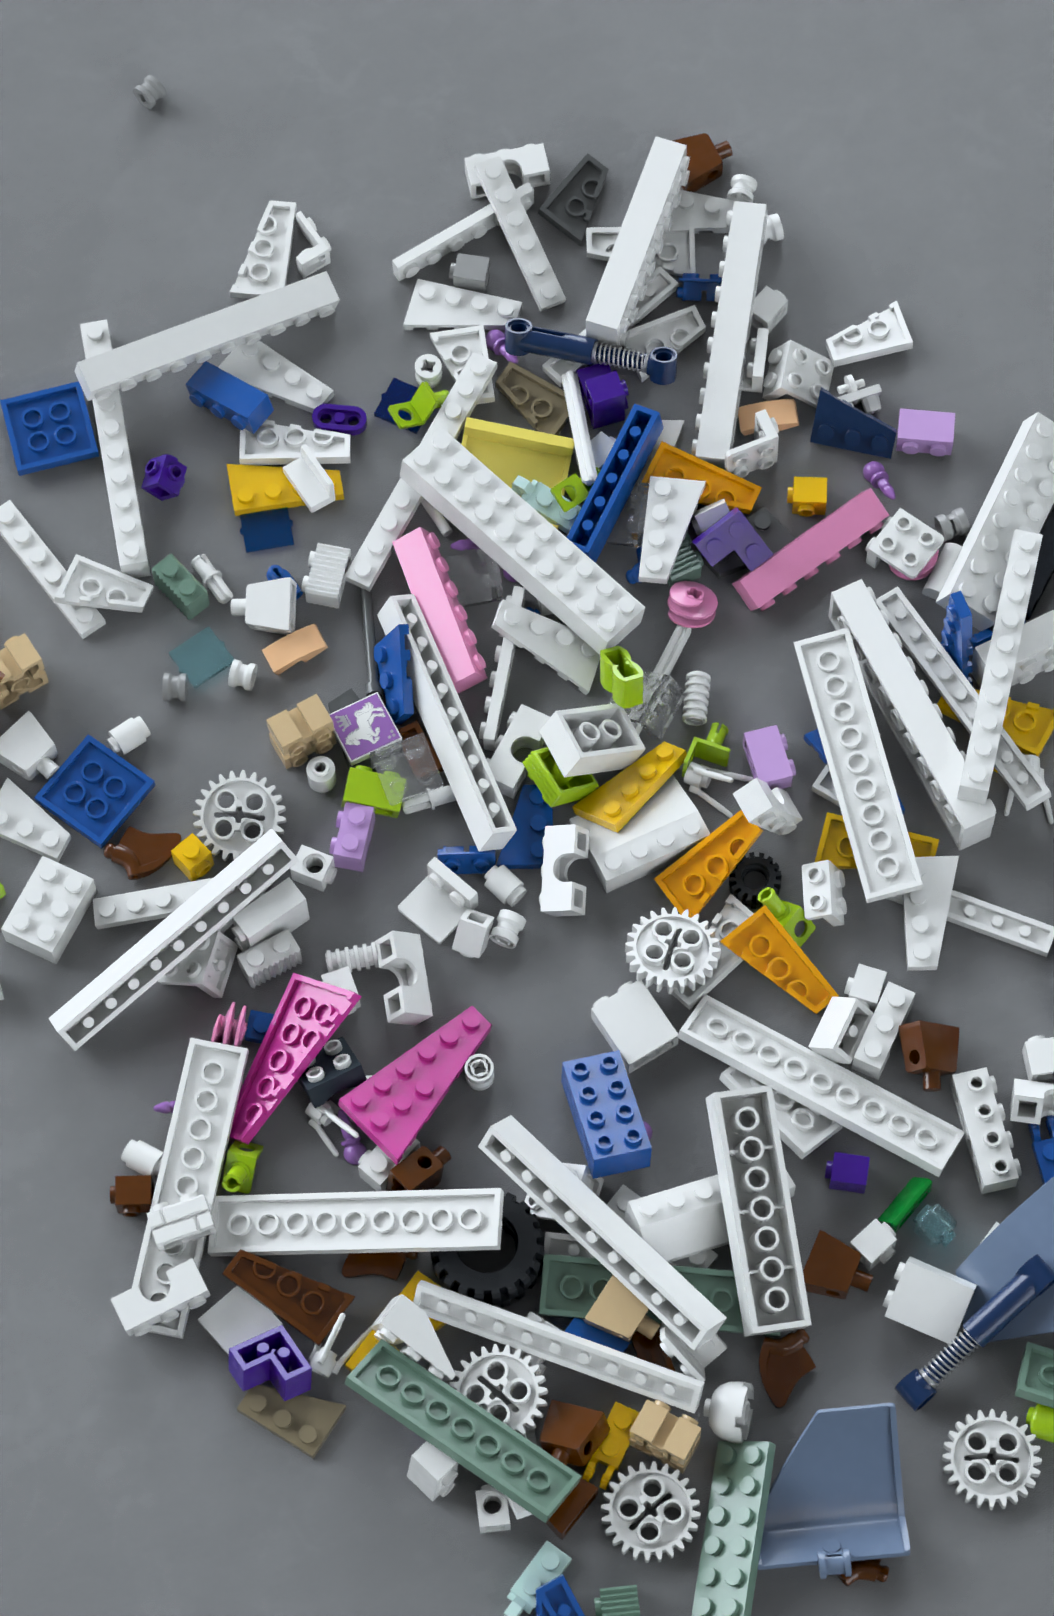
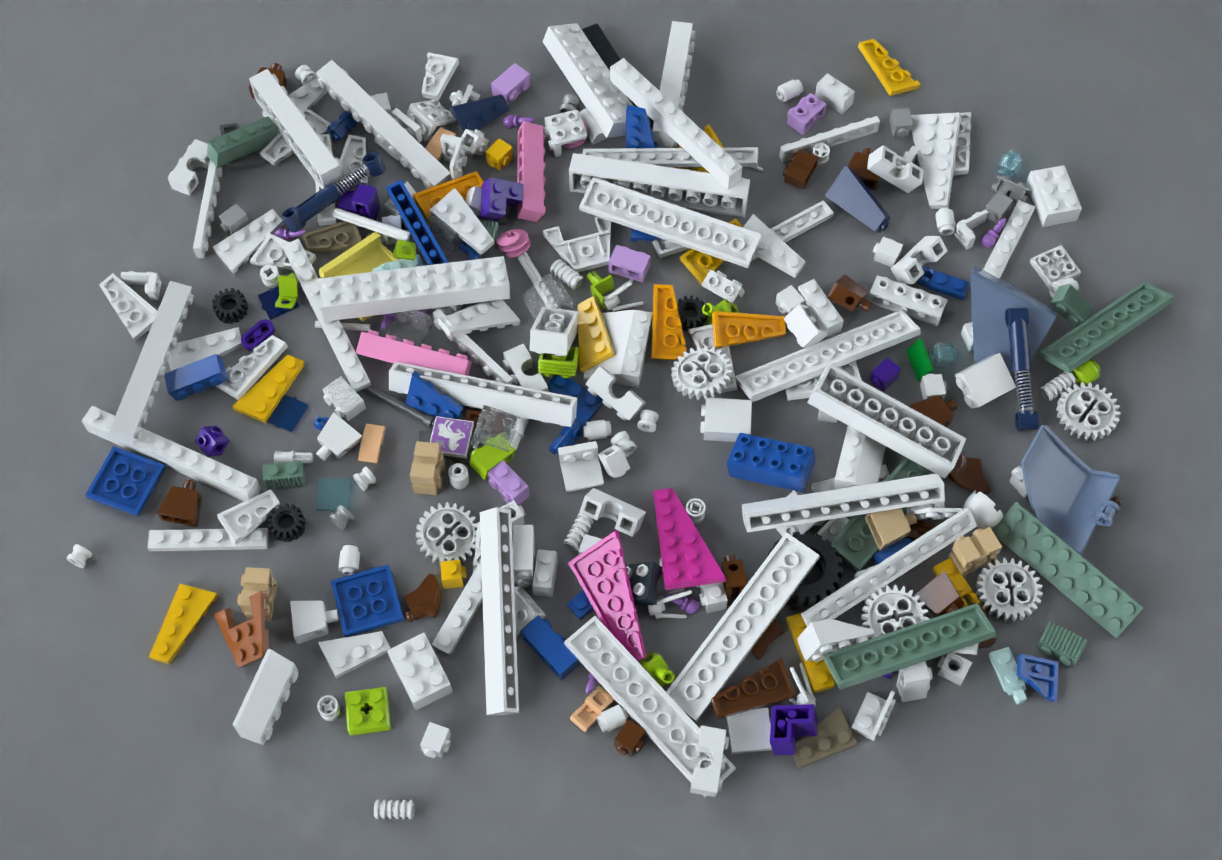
camera: 55 degrees left, 5 degrees down
(64, 508) = (181, 505): none -> reddish brown torso
(123, 619) = (283, 512): none -> black tyre
(148, 1128) = (594, 704): none -> light nougat slope
(181, 1221) = (672, 718): white brick -> none
(182, 1021) = (549, 647): none -> blue brick
(230, 1029) = (571, 616): bright pink piece -> none
(310, 480) = (283, 367): white panel -> none
(354, 373) = (233, 314): none -> black tyre
(361, 1451) = (872, 715): none -> white bracket
(520, 233) = (234, 181): white plate -> none
(561, 934) = (648, 421): none -> white wheel
(577, 196) = (241, 141): none -> sand green brick
(621, 677) = (531, 294): lime brick -> none
(746, 695) = (586, 251): none -> white wing
(768, 807) = (661, 274): white arch -> none
(798, 452) = (474, 142): none -> white brick
(1000, 1398) = (1057, 386): none -> white piece

